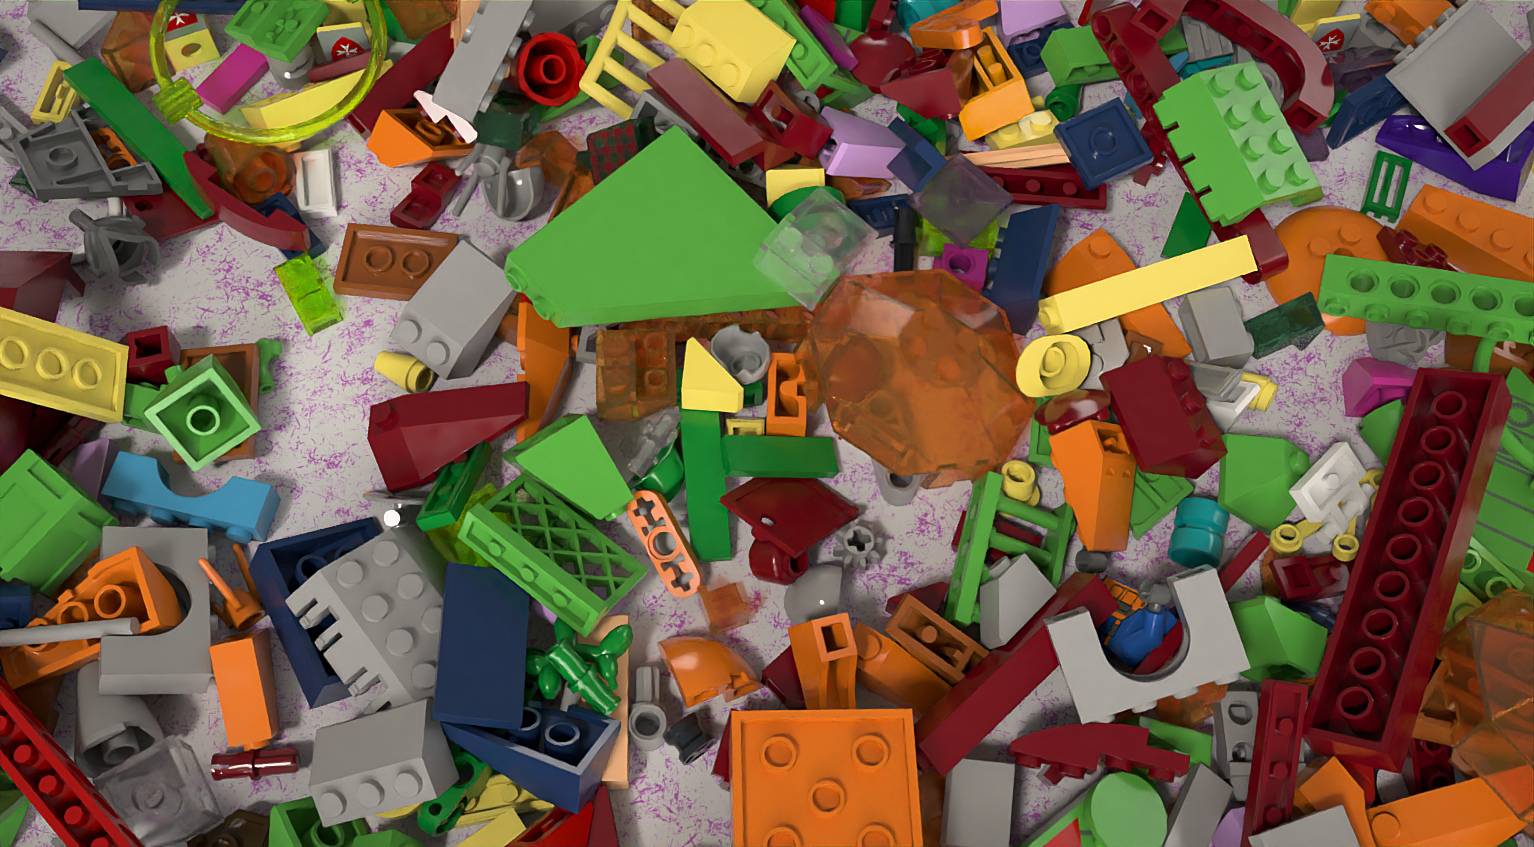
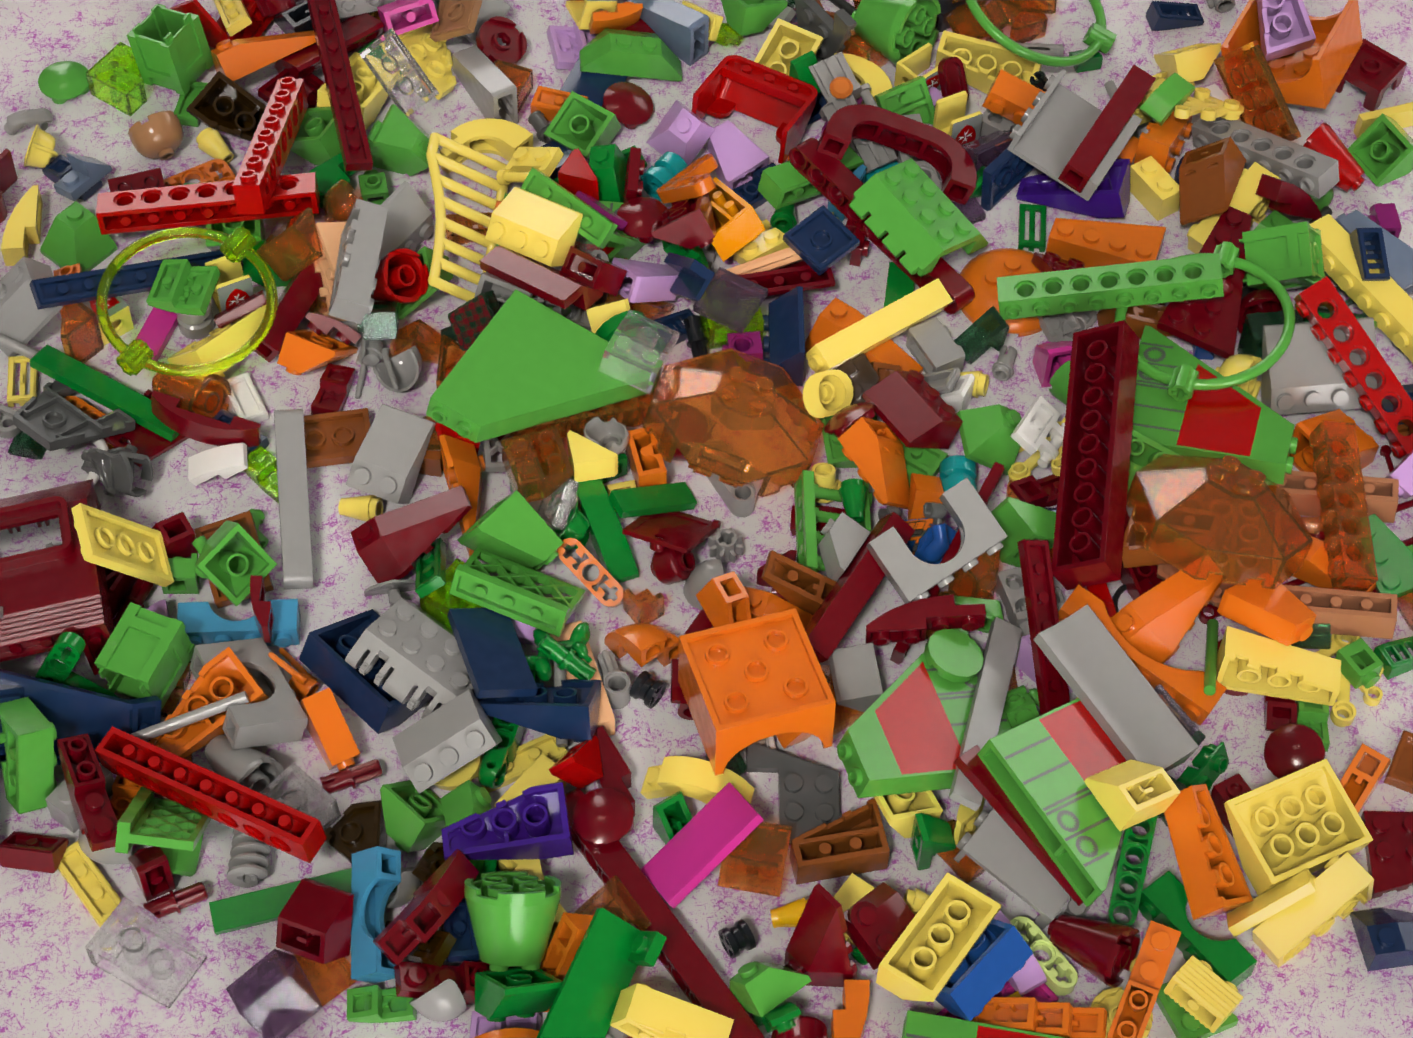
camera: 15 degrees left, 10 degrees down
(209, 501) = (262, 609): none -> dark red slope
(247, 261) = (220, 460): none -> white slope
(317, 340) = (293, 499): none -> light grey beam
(1047, 529) = (853, 497): none -> green cone
(1146, 548) = (923, 490): none -> orange slope
(1300, 378) = (1003, 368): none -> light grey pin

